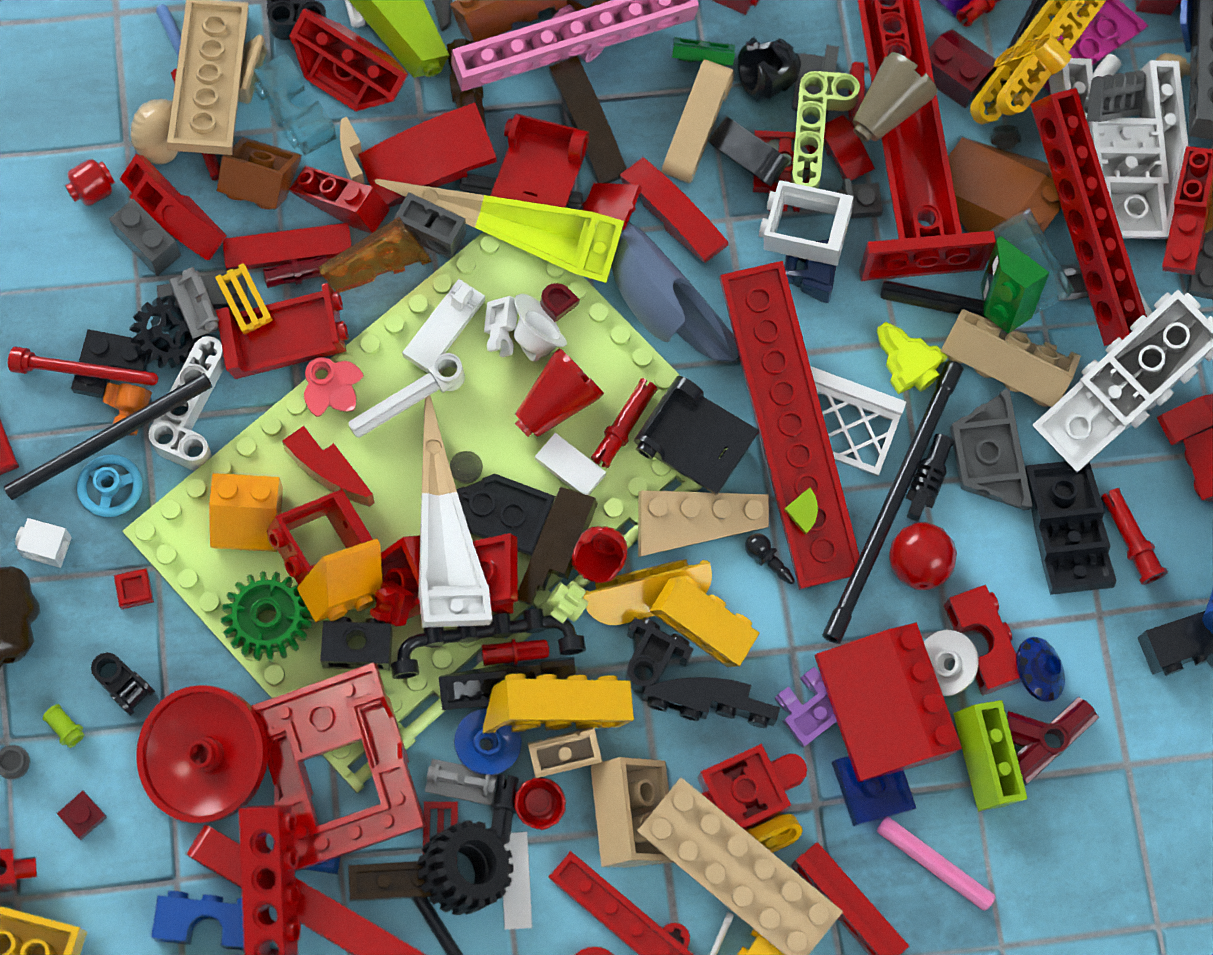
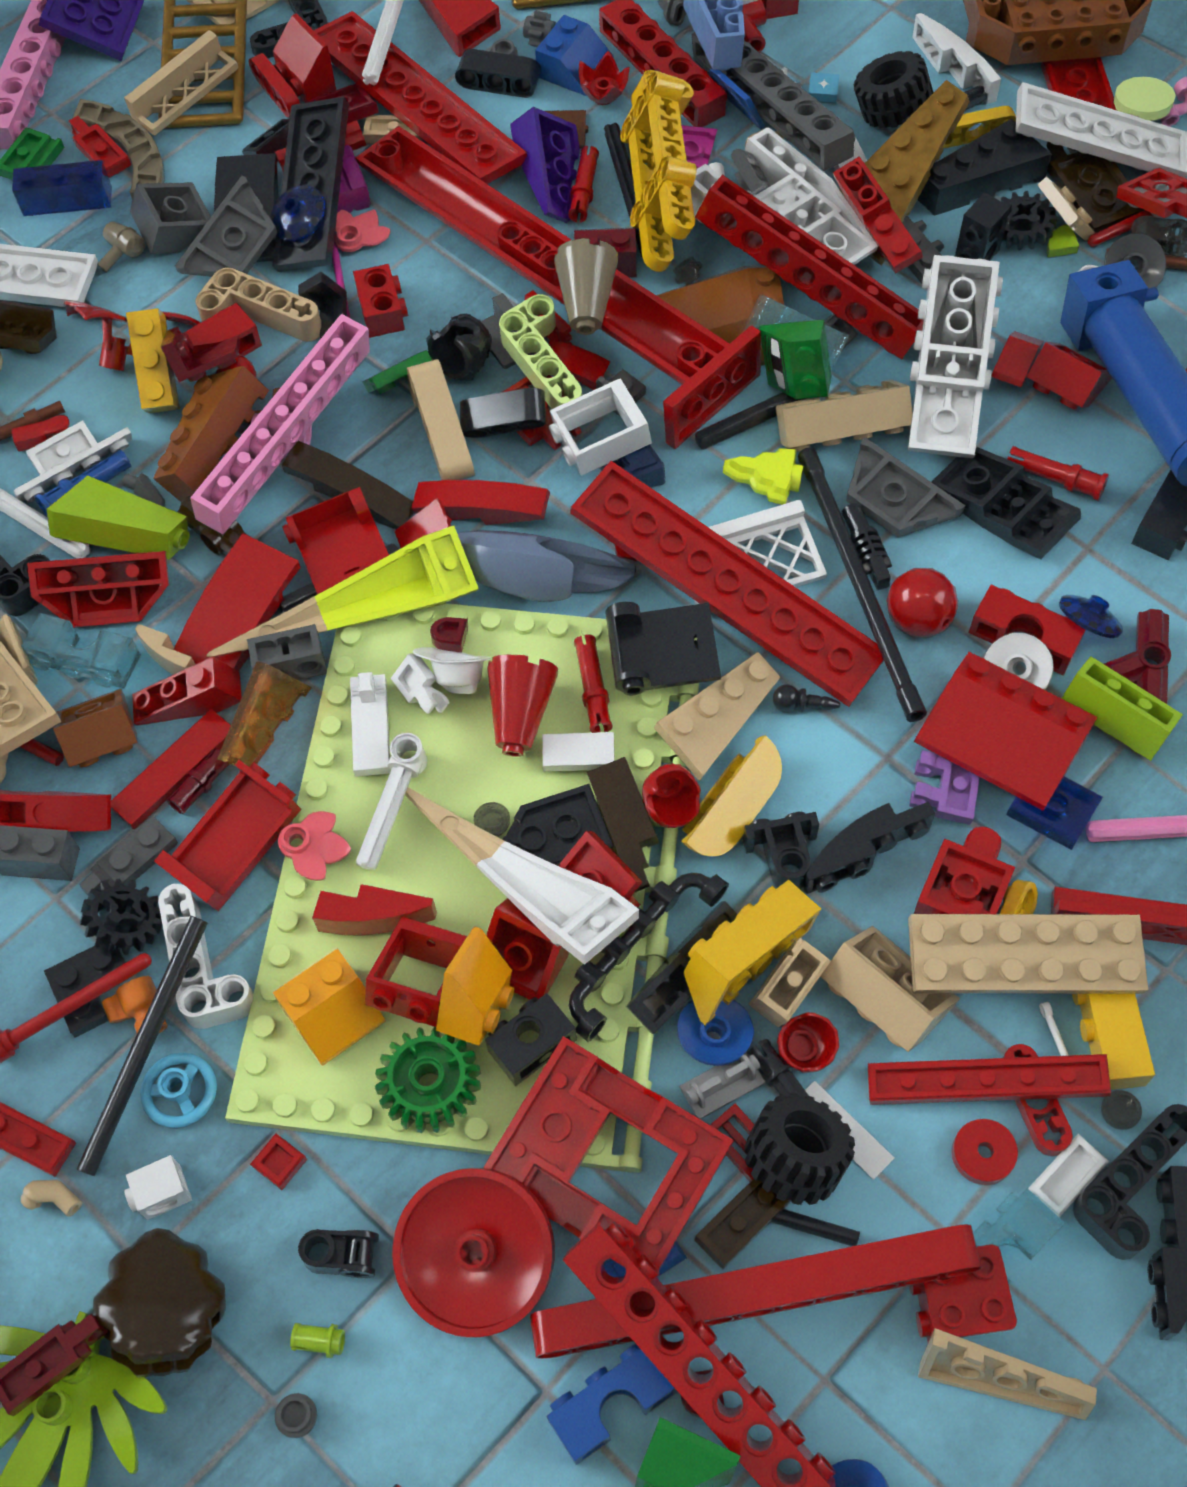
camera: 30 degrees left, 10 degrees down
(81, 815) = (405, 1408): dark red plate -> none
(194, 303) = (130, 870): light grey hinge -> none
(232, 275) = (146, 822): yellow tile -> none
(392, 603) = (533, 975): red tile -> none
(514, 651) = (670, 935): red axle -> none
(567, 602) = (679, 857): yellowish green gear -> none
(705, 621) = (803, 784): yellow brick -> none
(803, 510) = (801, 637): lime tile -> none

